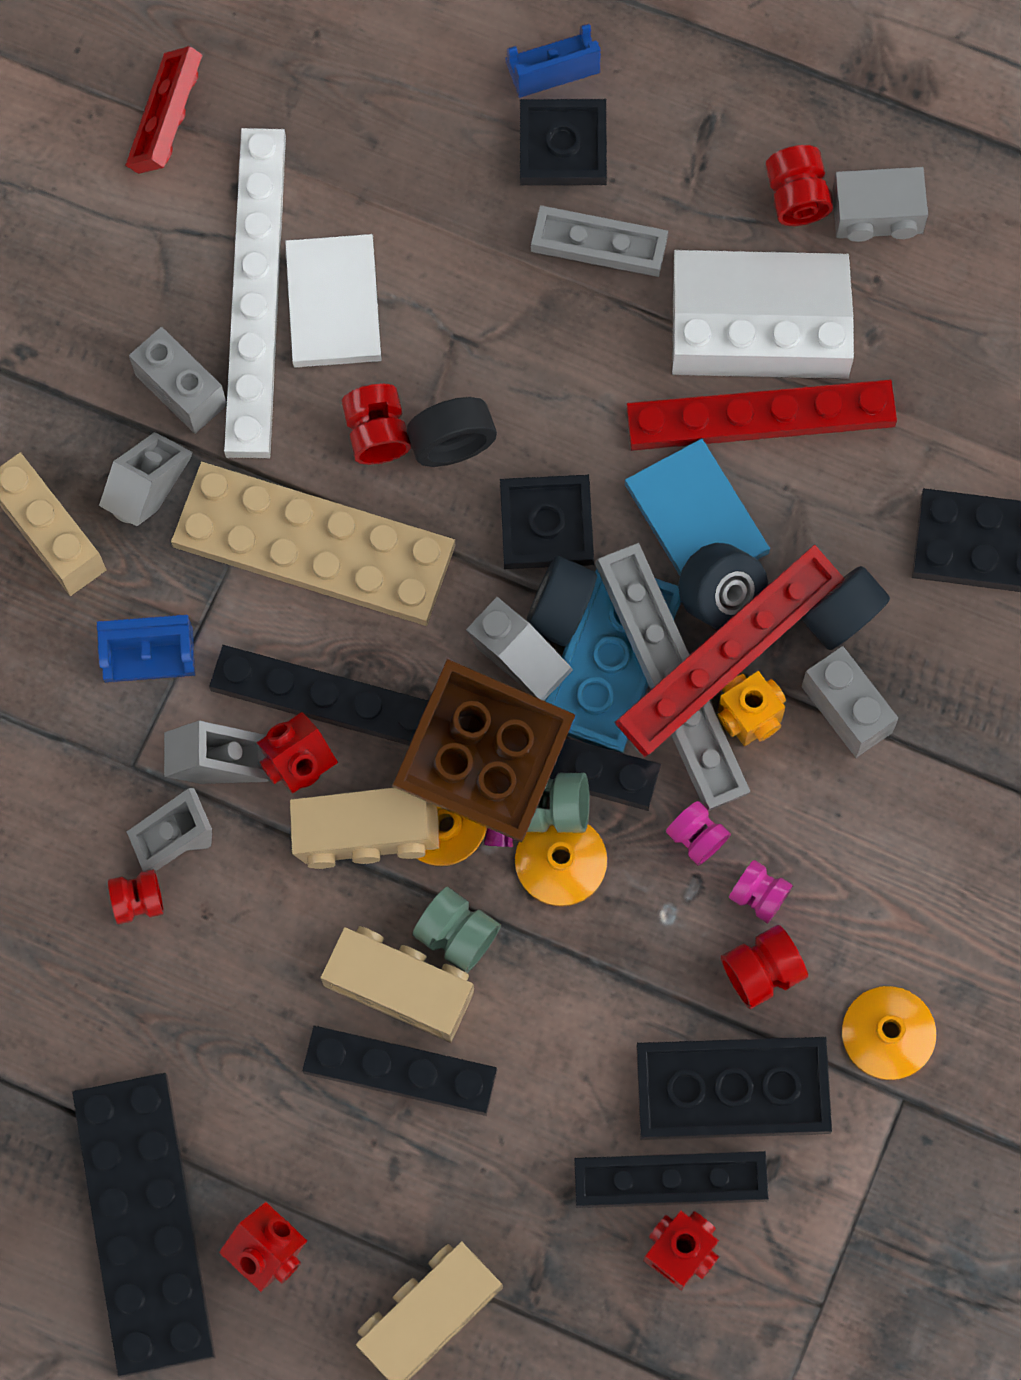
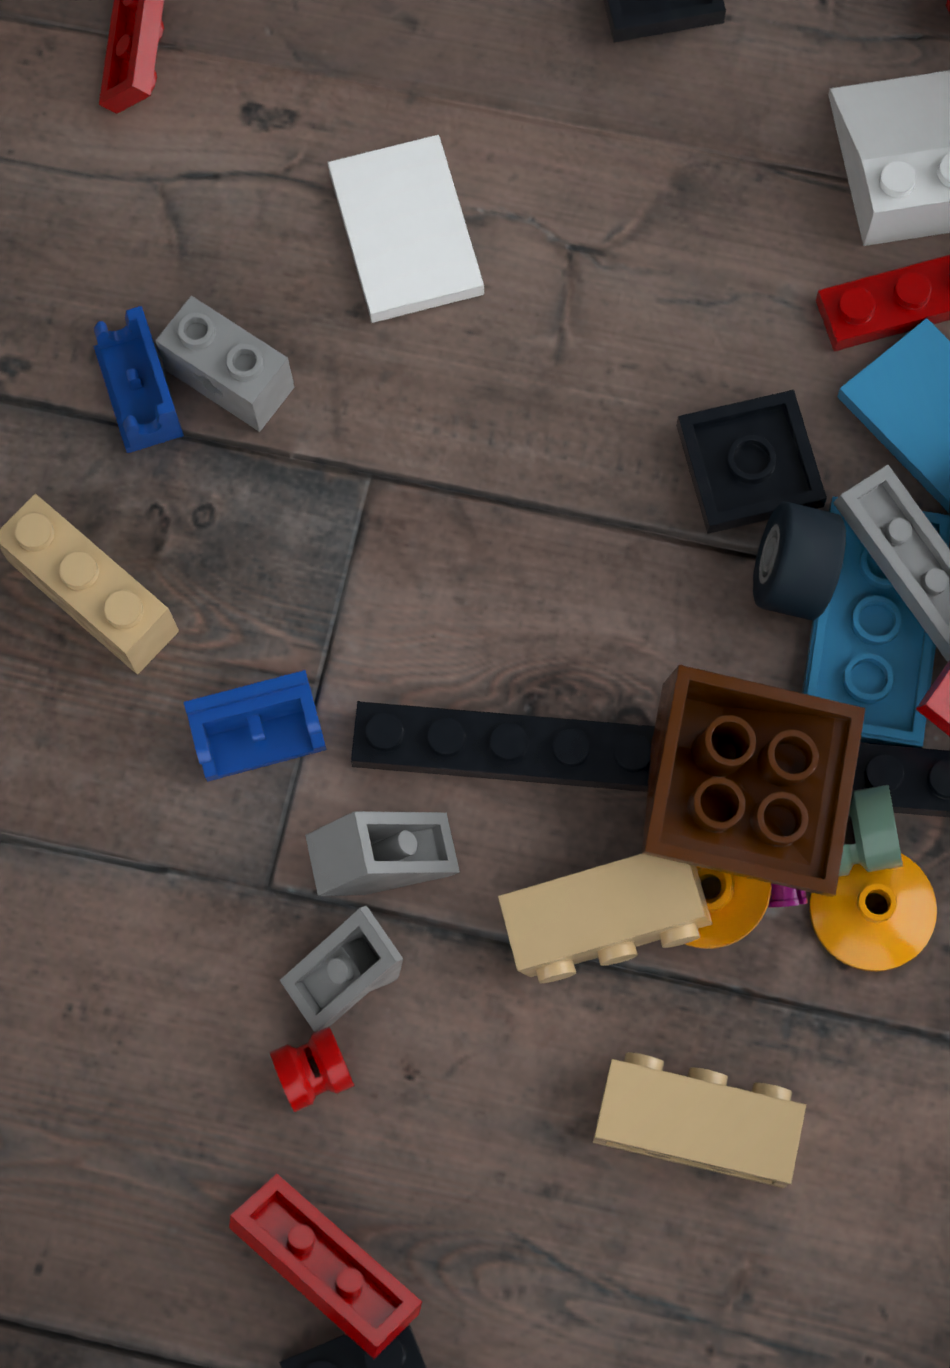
camera: 10 degrees left, 0 degrees up
(111, 382) = (136, 383): none -> blue hinge
(116, 1030) = (325, 1265): none -> red plate
(143, 478) = (205, 501): light grey slope -> none
(255, 294) = (302, 240): white plate -> none
(295, 753) = (490, 830): red brick -> none
(313, 543) = (448, 545): tan plate -> none
(374, 418) = (497, 368): red wheel -> none
(400, 1070) = (725, 1242): black plate -> none
(451, 431) = (603, 364): black tyre -> none
(456, 929) = (762, 1032): sand green wheel -> none
(518, 649) = (756, 634): light grey slope -> none
(599, 241) = (734, 92): light grey plate -> none

